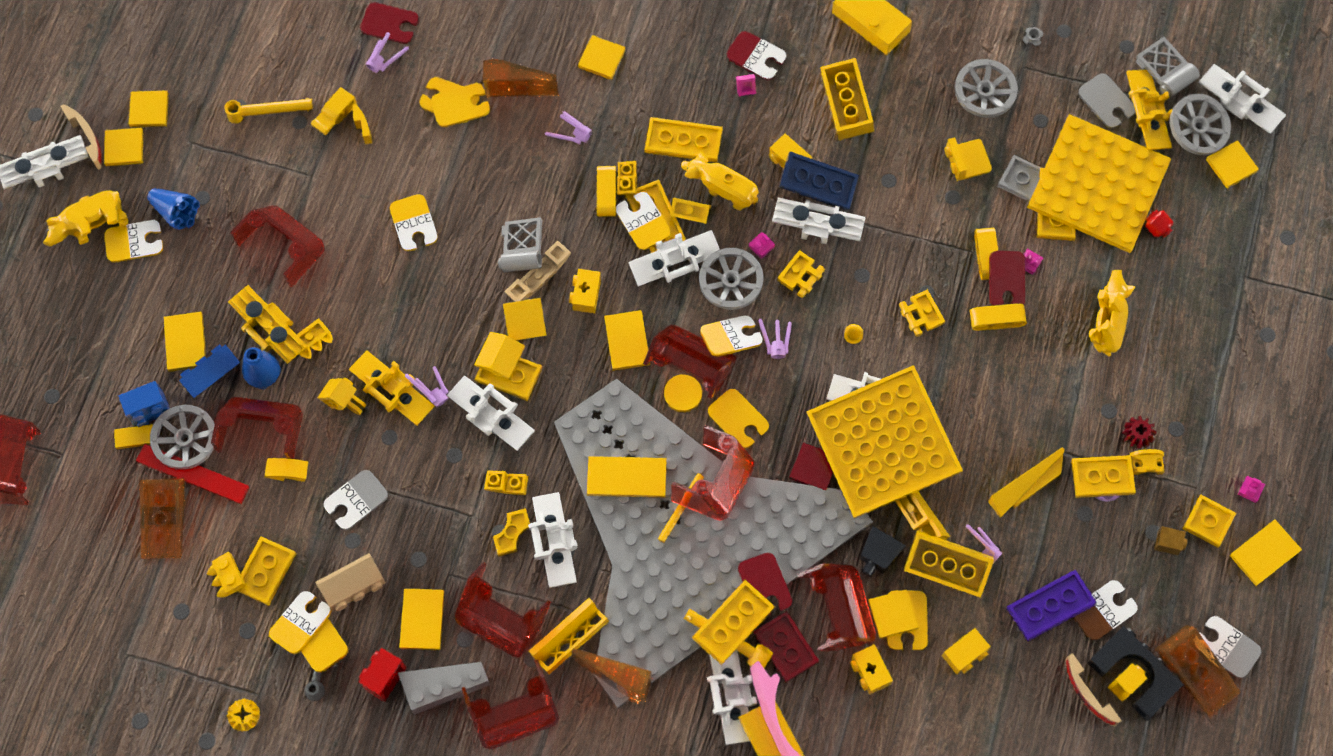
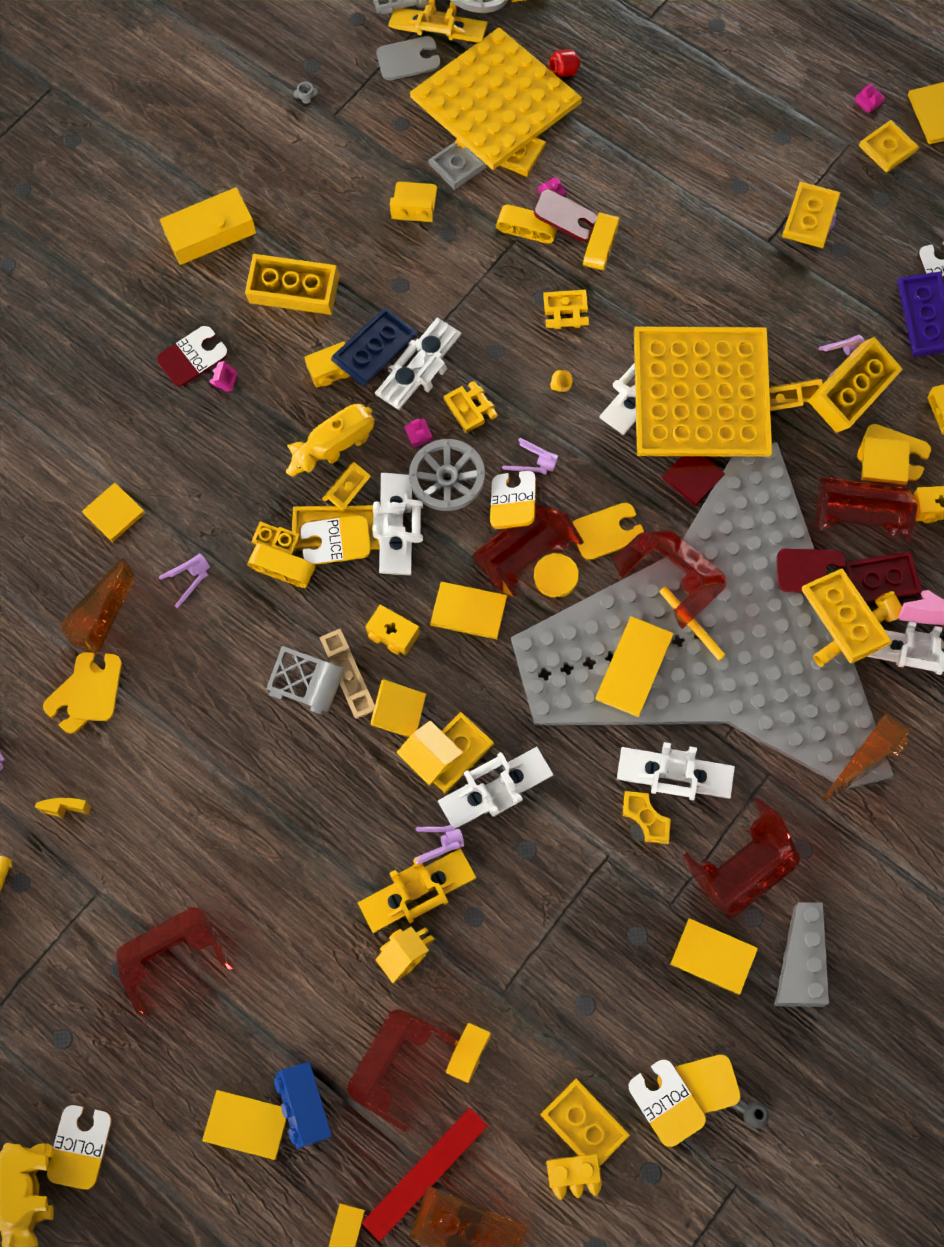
camera: 65 degrees left, 0 degrees up
(144, 404) = (315, 1202): blue brick -> none
(174, 207) = (61, 1076): blue cone -> none
(180, 435) = (367, 1165): light grey wheel -> none
(249, 721) = (746, 1219): yellow gear -> none
(260, 368) = (332, 1047): blue cone -> none
(272, 319) = (270, 1002): yellow piece -> none
(313, 336) = (313, 964): yellow plate -> none
(334, 111) = (29, 834): yellow piece -> none
(351, 583) = (646, 1021): tan slope -> none
(360, 497) = (533, 977): piece -> none
(382, 674) = (772, 1023): red brick -> none
(412, 217) = (209, 793): piece -> none
(506, 483) = (585, 802): yellow slope -> none
(515, 717) = (866, 887): clear red windscreen -> none
(565, 634) = (788, 800): yellow fence -> none
(683, 139) = (255, 465): yellow tile -> none
(880, 552) = (813, 447): black torso -> none
(986, 86) = (345, 154): light grey wheel -> none
(1027, 484) = (791, 284): yellow wedge -> none
(1112, 315) = (644, 138): yellow animal -> none
(1145, 428) = (777, 166): dark red gear -> none
(1147, 461) = (809, 171): yellow piece -> none
(1170, 541) = (899, 184): pearl gold brick -> none

